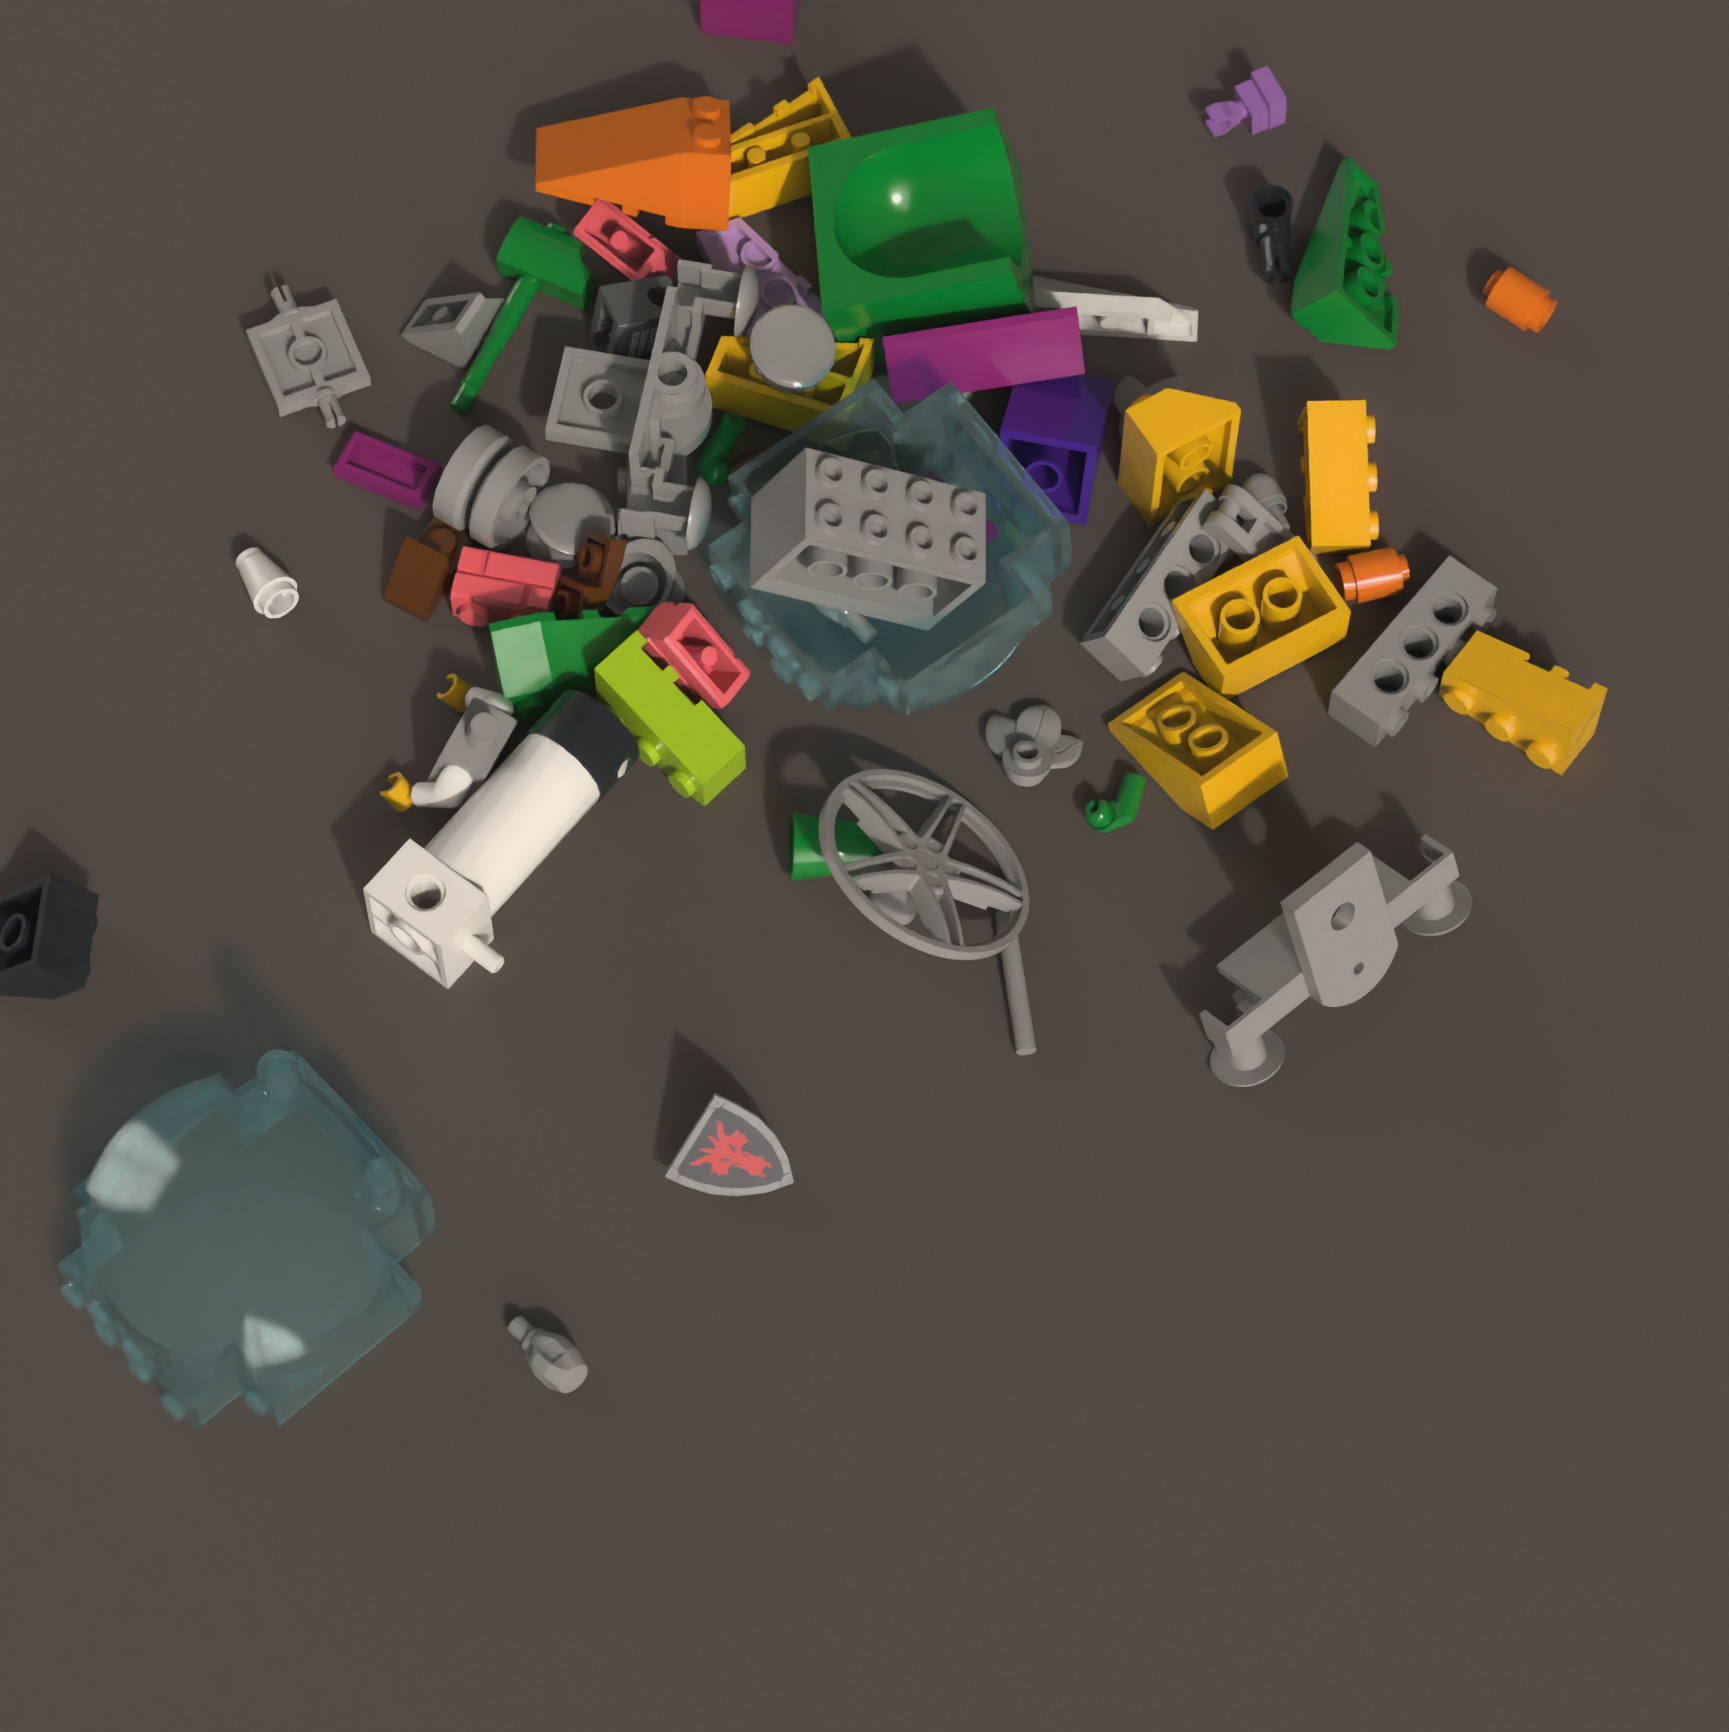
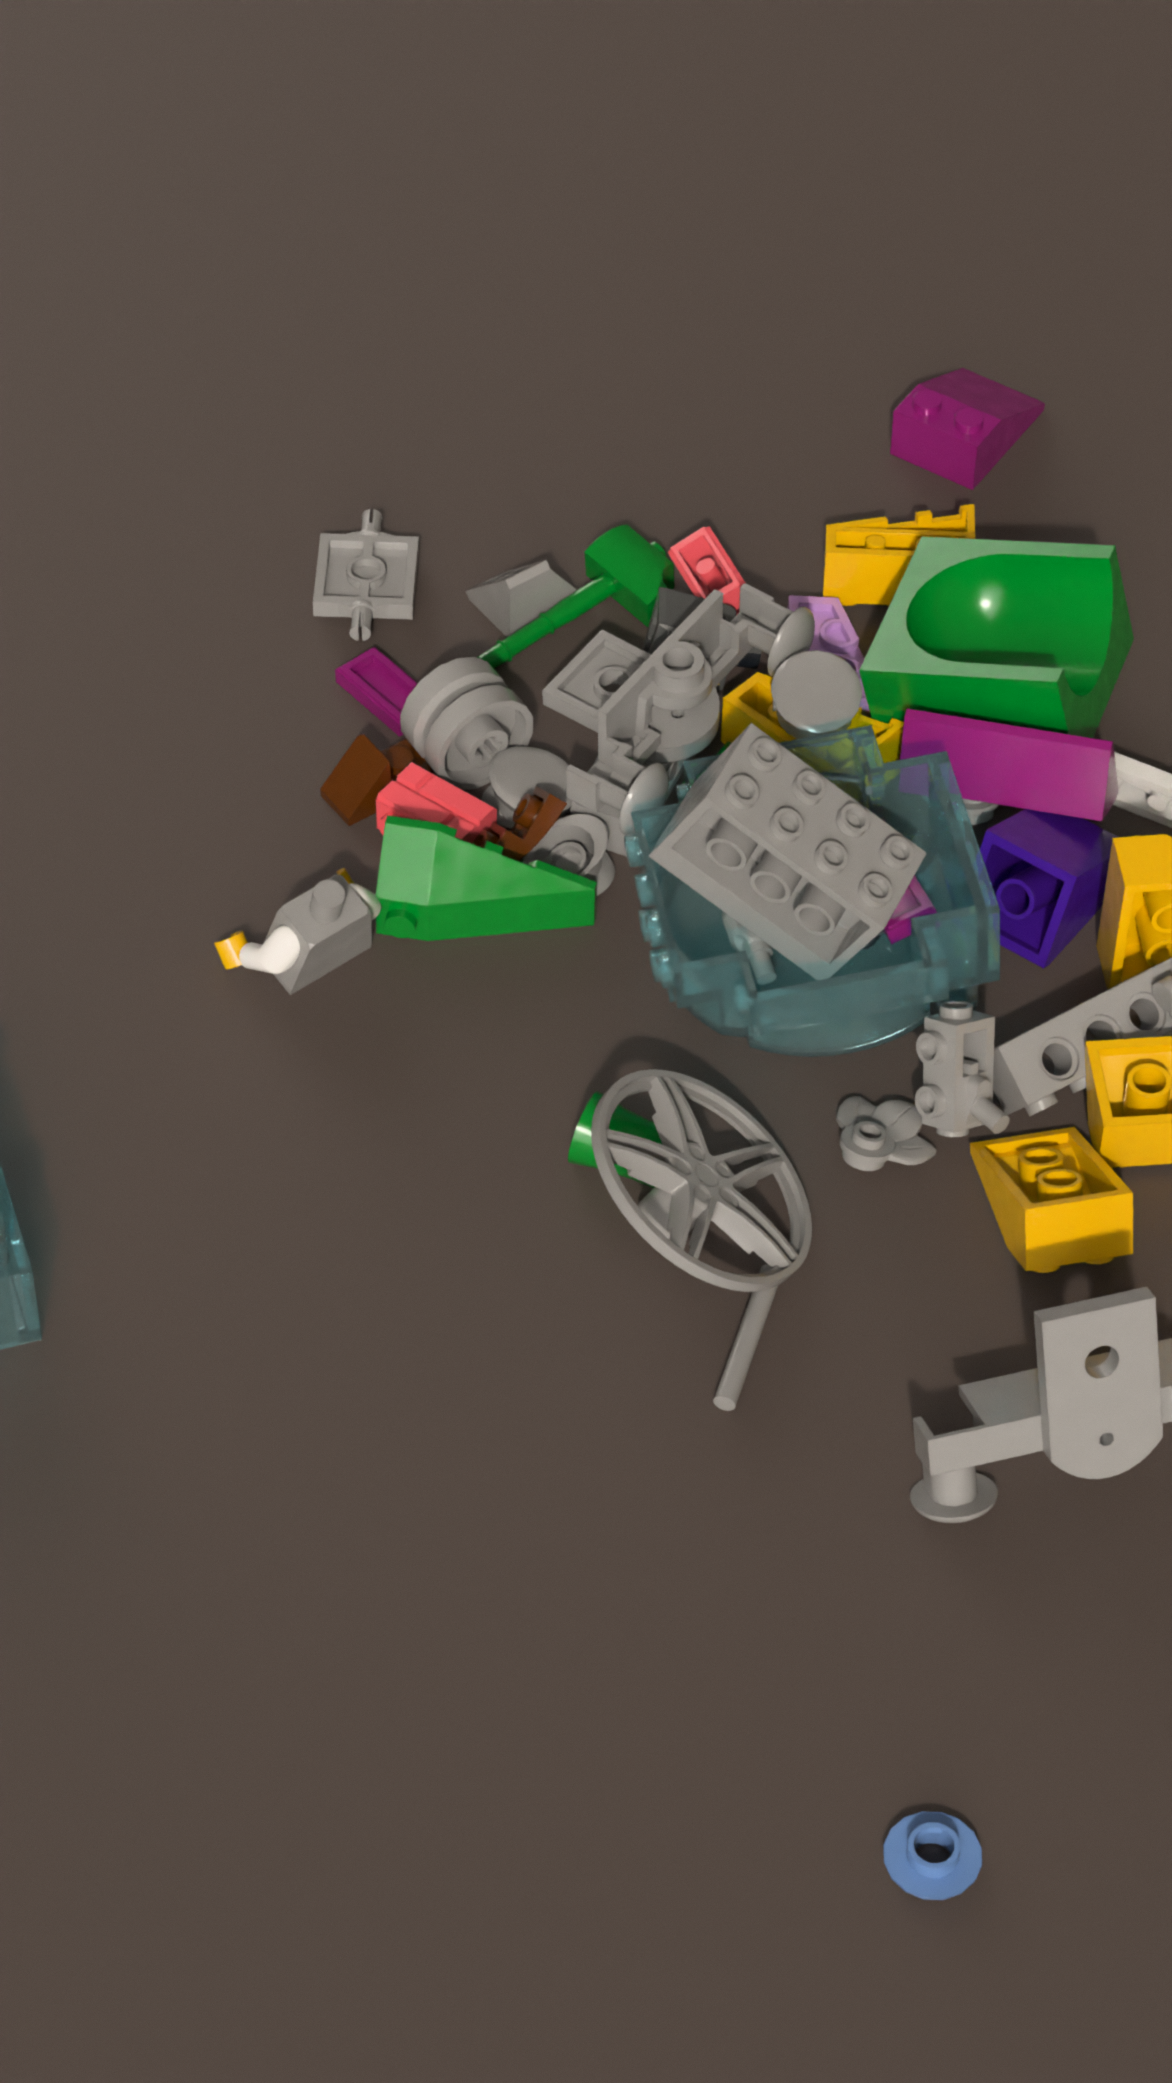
camera: 25 degrees right, 15 degrees down
(267, 584) = (216, 739): white cone -> none
(441, 897) = (213, 1041): white piece -> none
(550, 1356) = (78, 1489): light grey piece -> none
(646, 158) = (776, 513): orange wedge -> none
(667, 725) = (519, 976): lime wedge -> none
(693, 648) = (577, 924): coral brick -> none
(731, 1153) = (364, 1371): shield -> none
(1080, 670) = (958, 1071): none -> light grey brick
(1120, 811) = (939, 1225): green arm -> none
(1371, 1397) = (929, 1879): none -> medium blue piece

